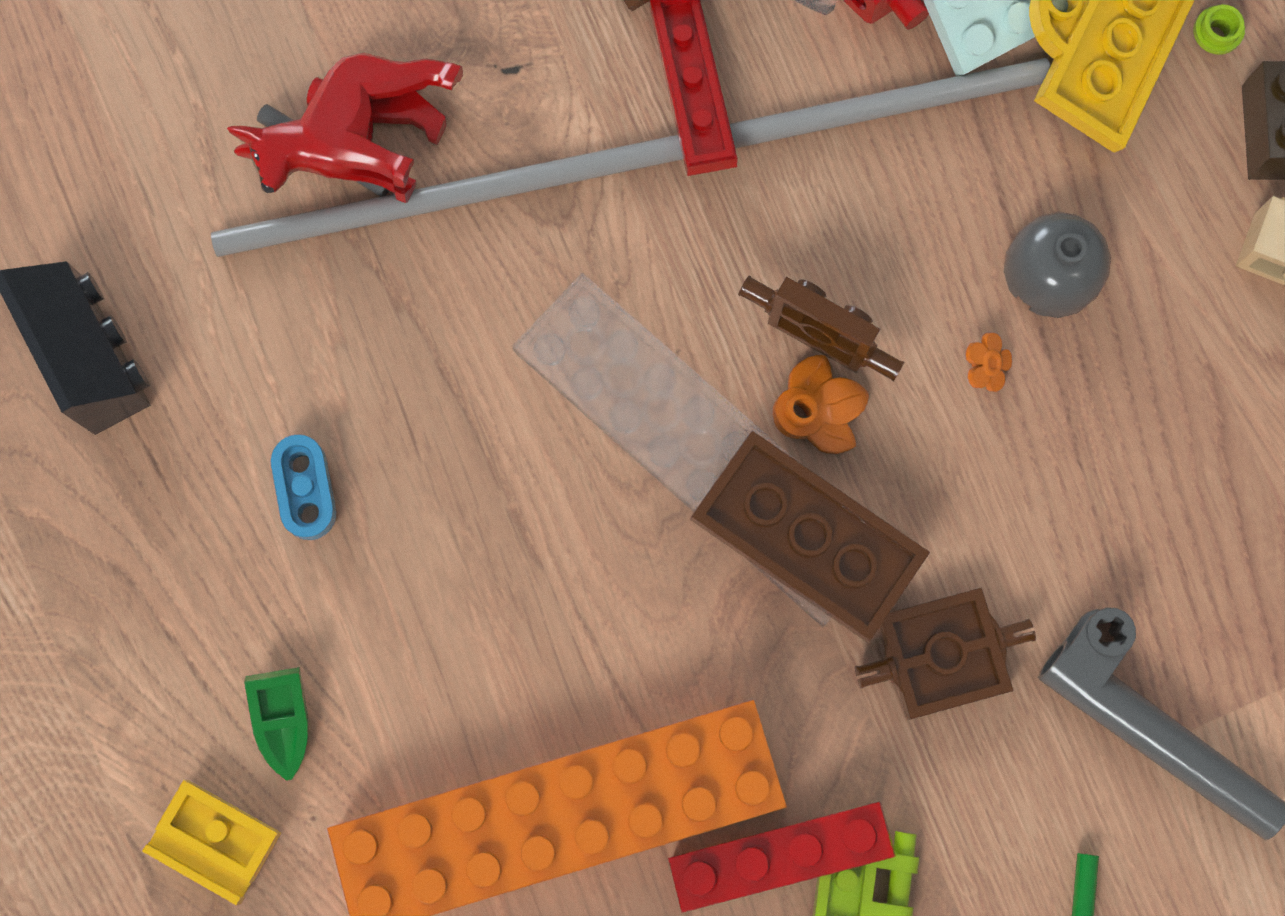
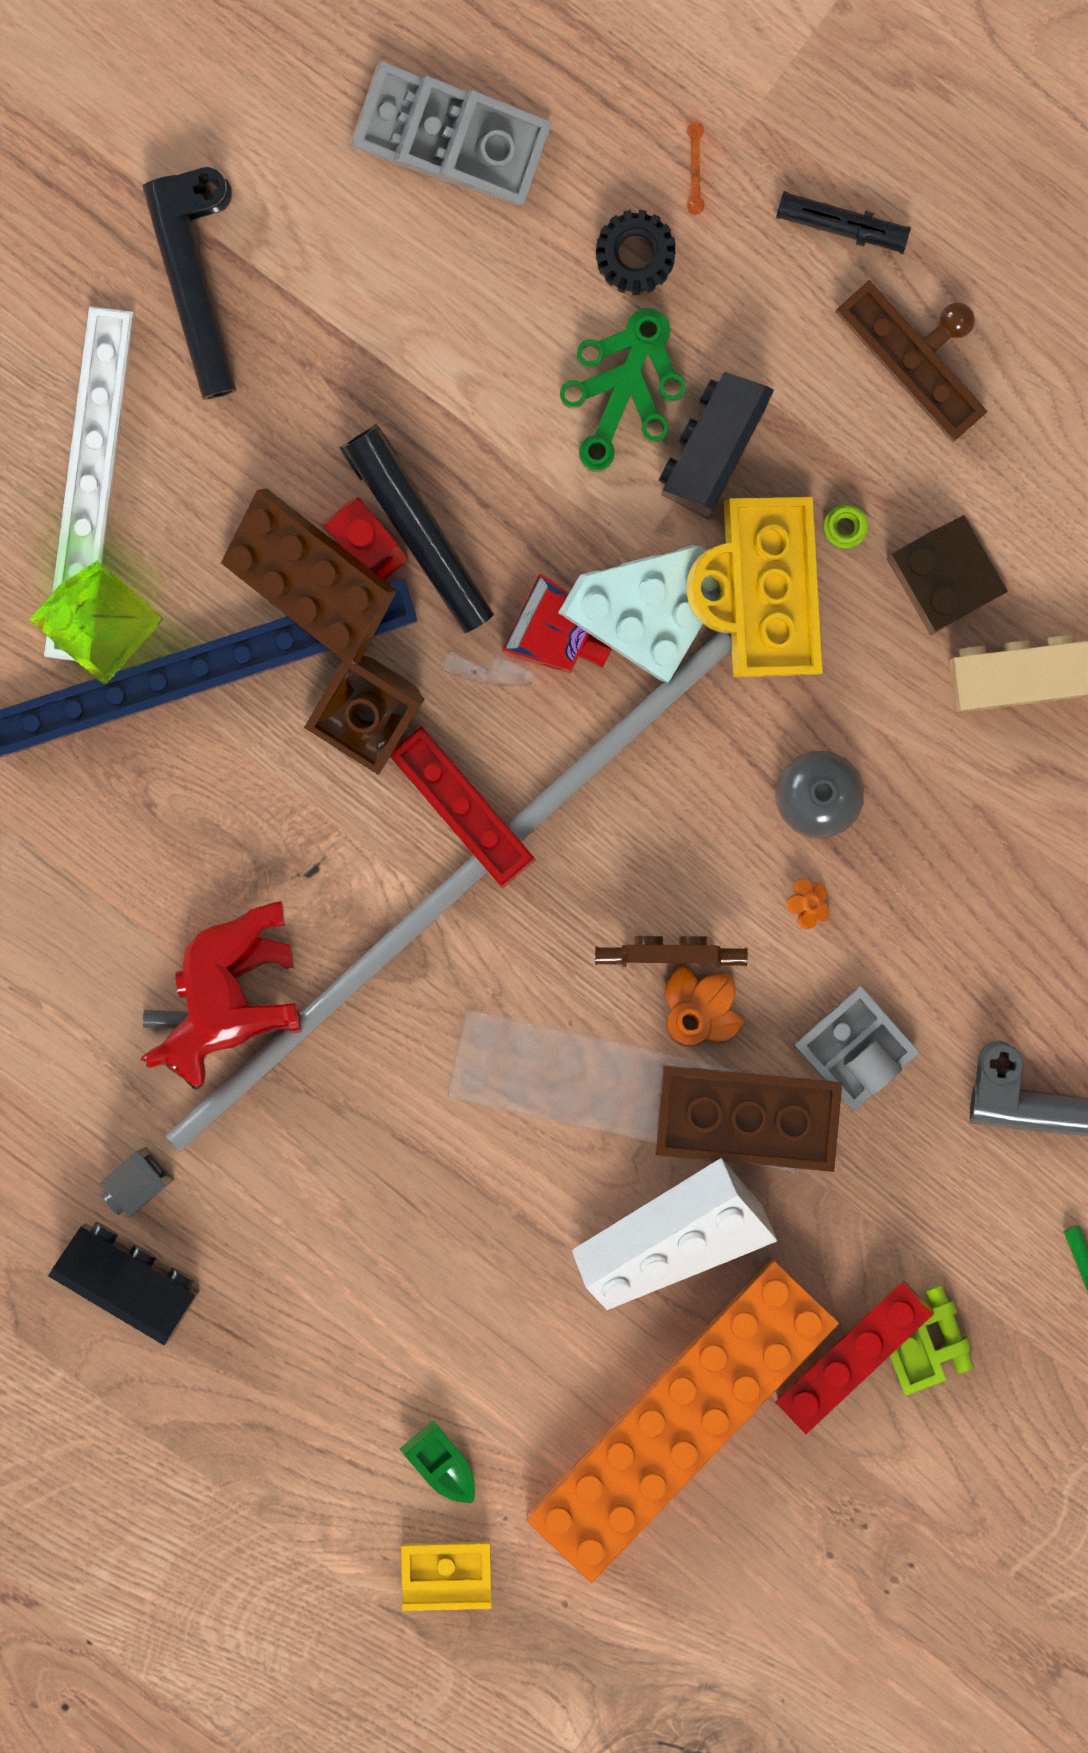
camera: 30 degrees left, 10 degrees up
(151, 252) = (135, 1183): none -> dark grey slope
(303, 489) = (353, 1290): dark azure plate -> none
(662, 616) = (674, 1237): none -> white wedge
(945, 653) = (893, 1143): reddish brown plate -> none
(964, 529) = (857, 1048): none -> light grey plate

